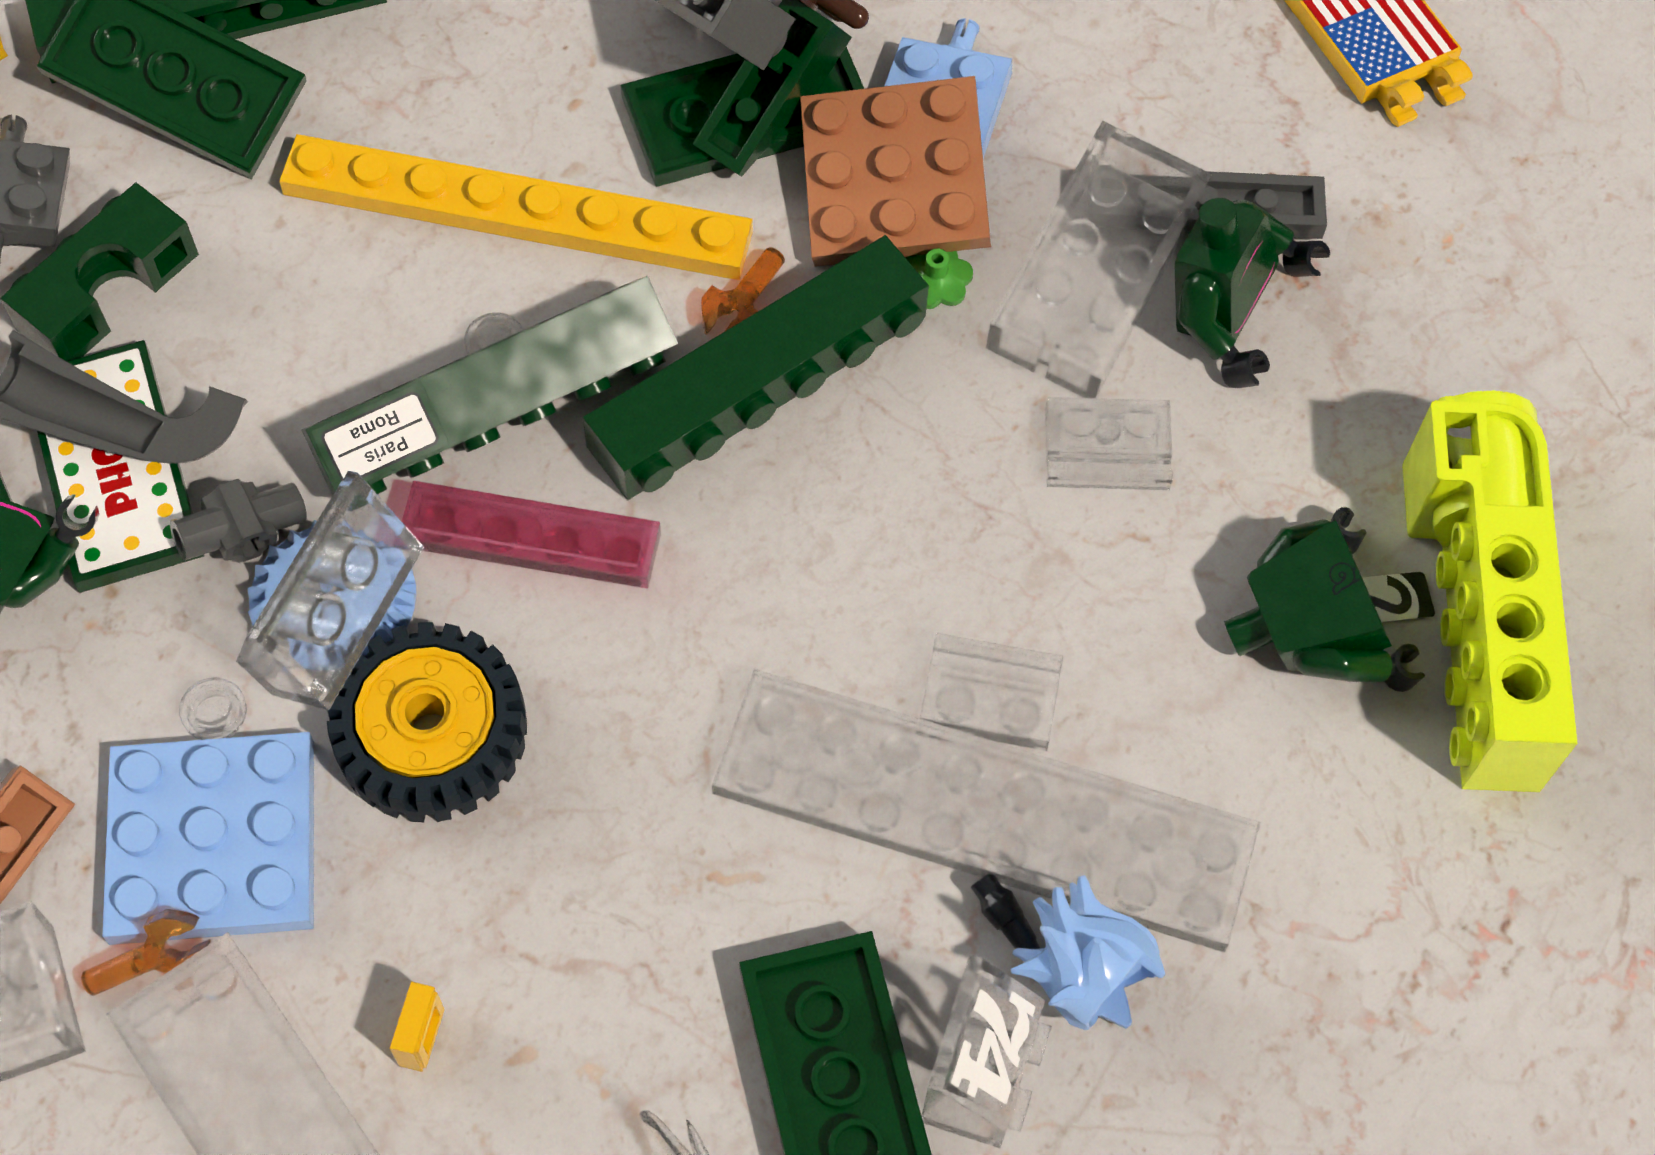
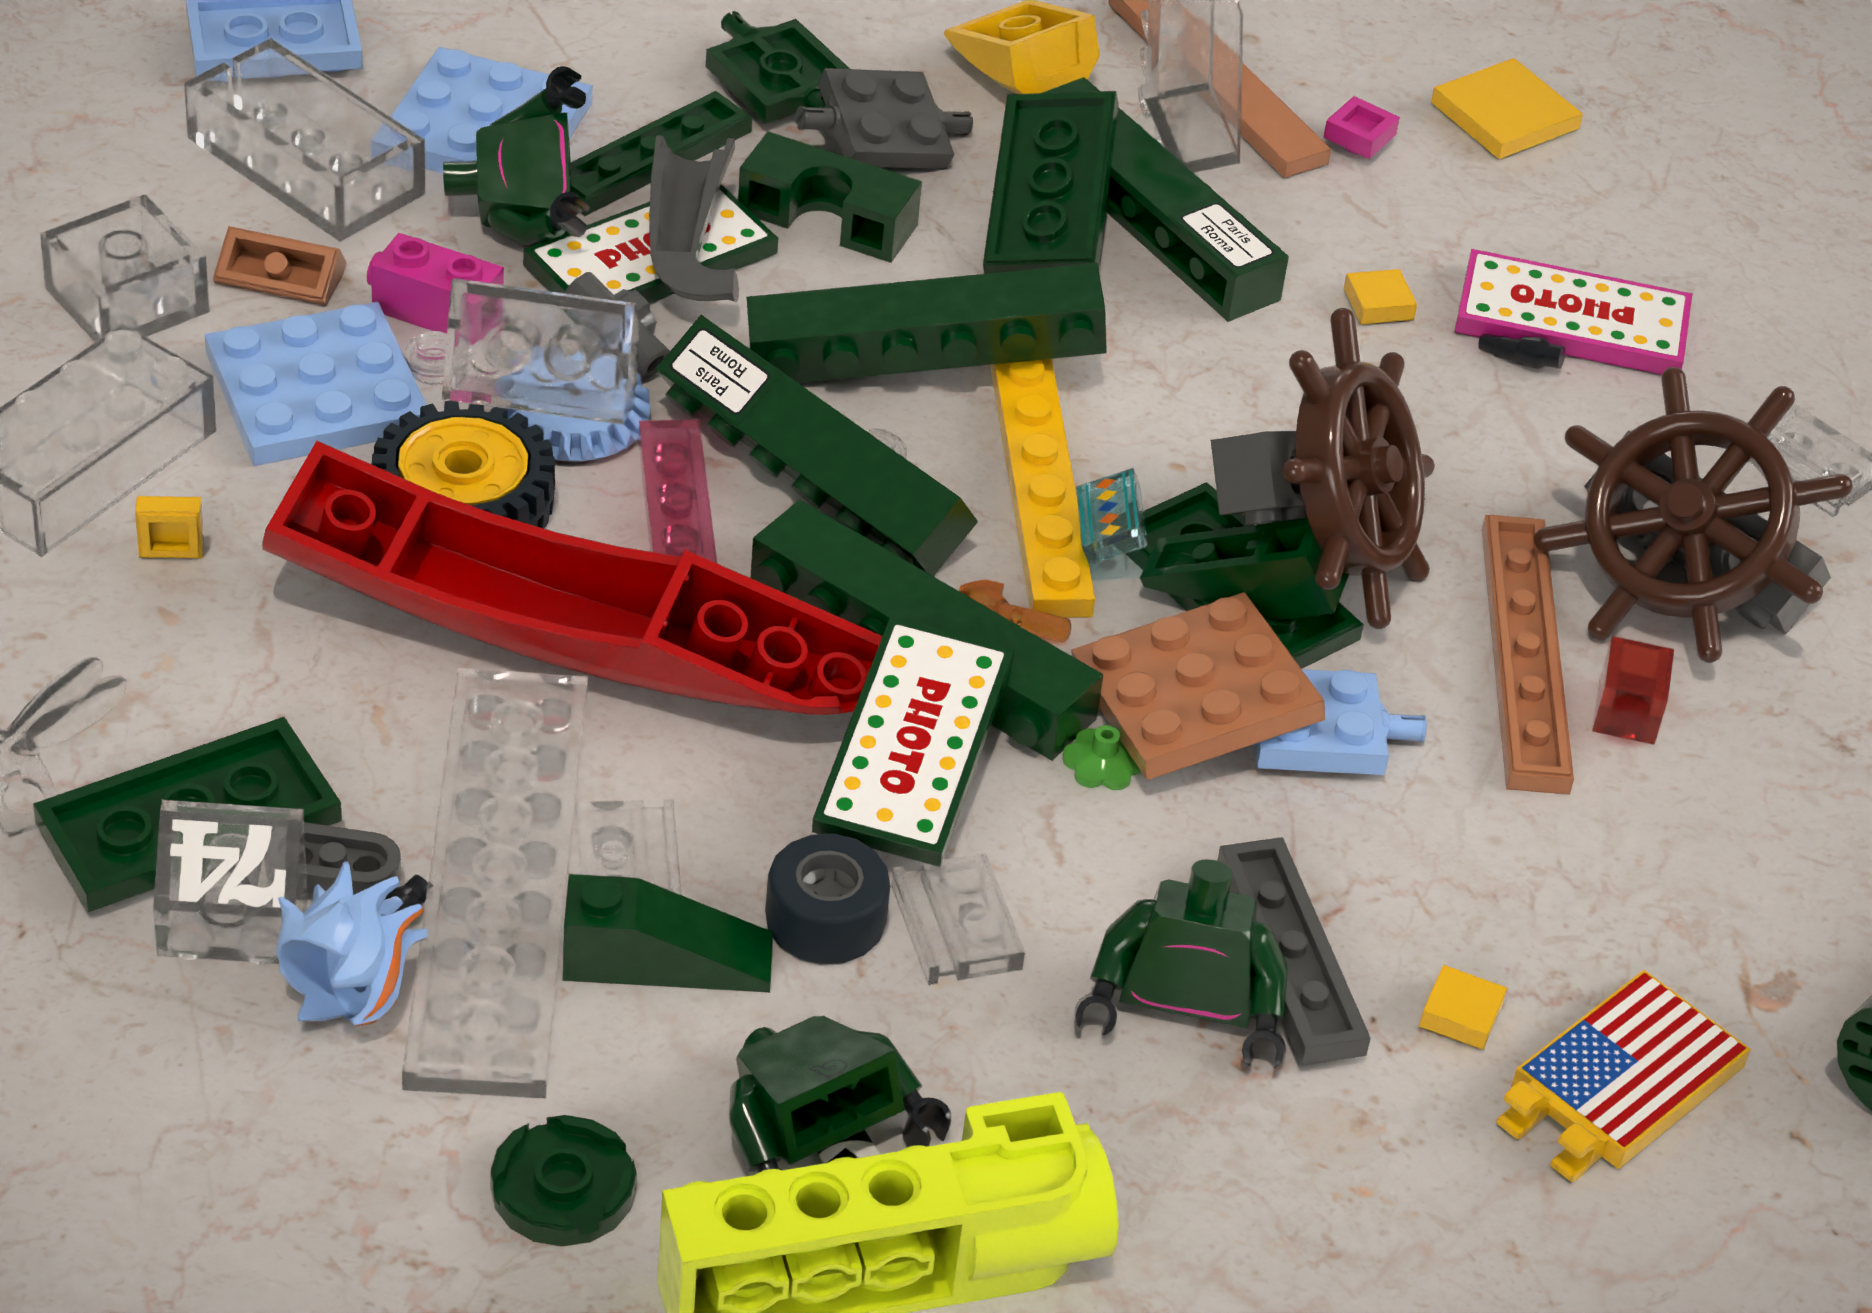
camera: 70 degrees right, 20 degrees down
(113, 683) = (415, 280): none -> dark pink brick
(147, 956) = (210, 358): clear orange bar -> none
(357, 243) = (931, 323): none -> dark green brick
(655, 665) = (567, 598): none -> red slope
(657, 169) = (1111, 516): none -> clear light blue tile
(930, 408) = (914, 741): none -> tile
(935, 958) = (369, 854): none -> dark grey plate
(1088, 514) = (827, 898): none -> black wheel
(1097, 260) = (1118, 825): clear piece -> none
(1100, 685) = (654, 937): none -> dark green slope
(1282, 105) = (1463, 1007): none -> yellow tile
(1350, 838) = (563, 1181): none -> dark green tile

